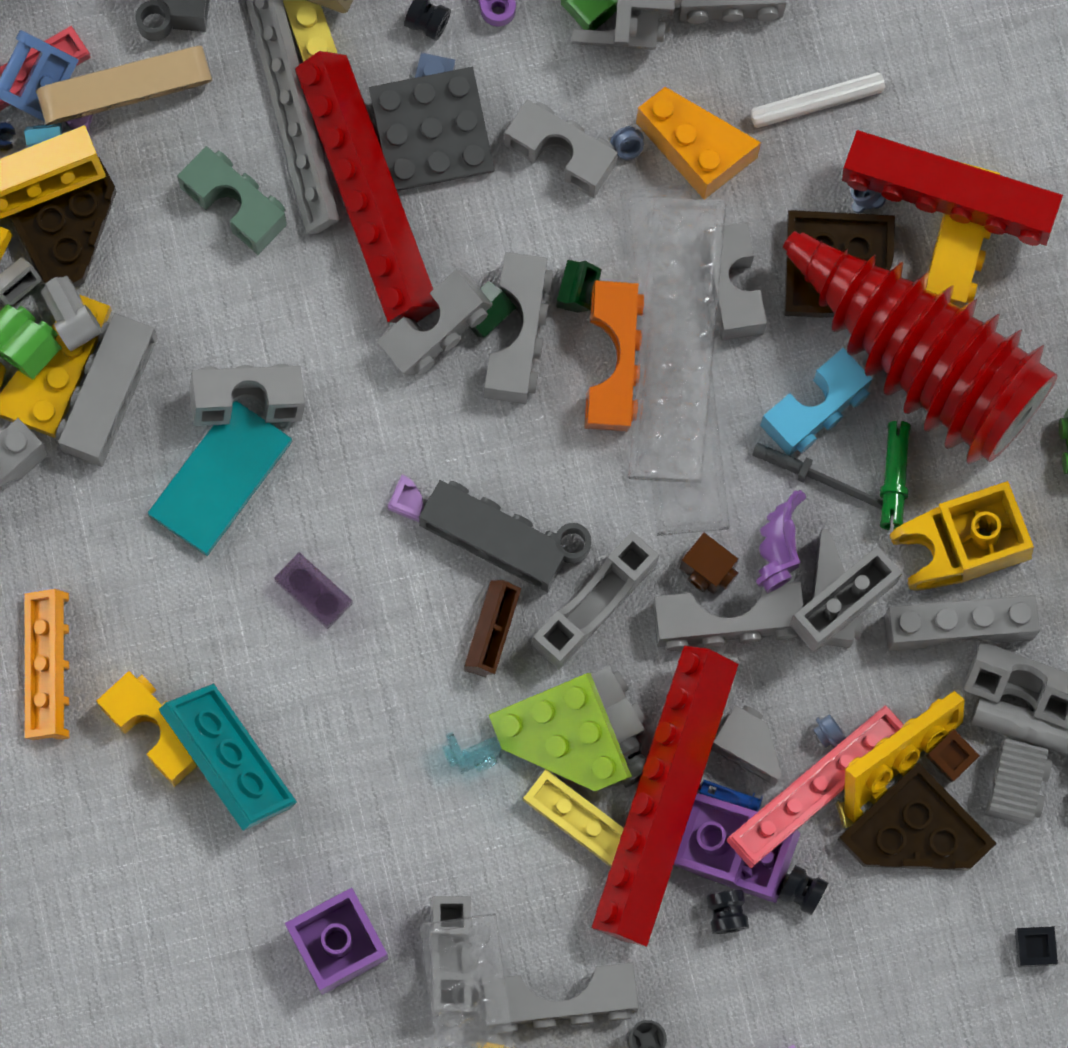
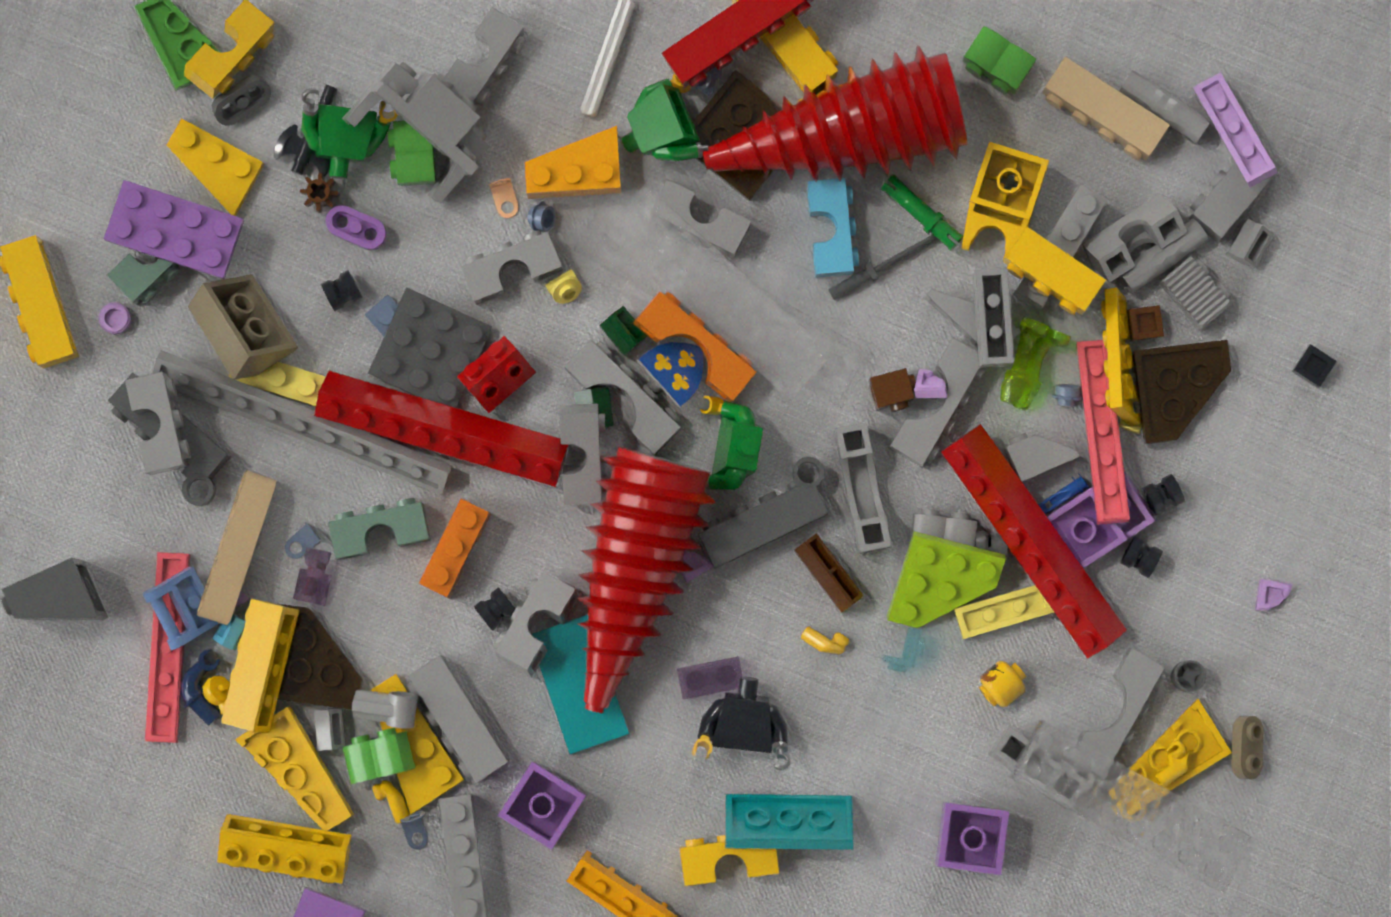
camera: 50 degrees left, 10 degrees up
(80, 518) = (542, 805): none -> medium lavender brick
(141, 176) = (312, 582): none -> clear purple plate
(179, 147) = (306, 537): none -> sand blue piece
(234, 350) = (495, 609): none -> black wheel
(241, 277) = (454, 548): none -> orange arch
(291, 648) = (744, 723): none -> black torso
(370, 436) = (636, 558): none -> red cone
(422, 672) = (824, 644): none -> yellow arm
(452, 199) = (496, 374): none -> red brick
(507, 867) = (1002, 684): none -> yellow head
(546, 458) = (736, 444): none -> green torso
(577, 352) = (675, 369): none -> blue shield
(578, 208) = (564, 287): none -> light yellow plate
(624, 97) = (502, 193): none -> light nougat piece
(738, 593) = (929, 385): none -> lavender tile
(779, 545) = (915, 330): medium lavender plant -> none
(795, 184) = (663, 124): none -> green torso
(803, 679) = (1022, 380): none -> clear neon green piece
(932, 622) = (1053, 272): none -> yellow brick

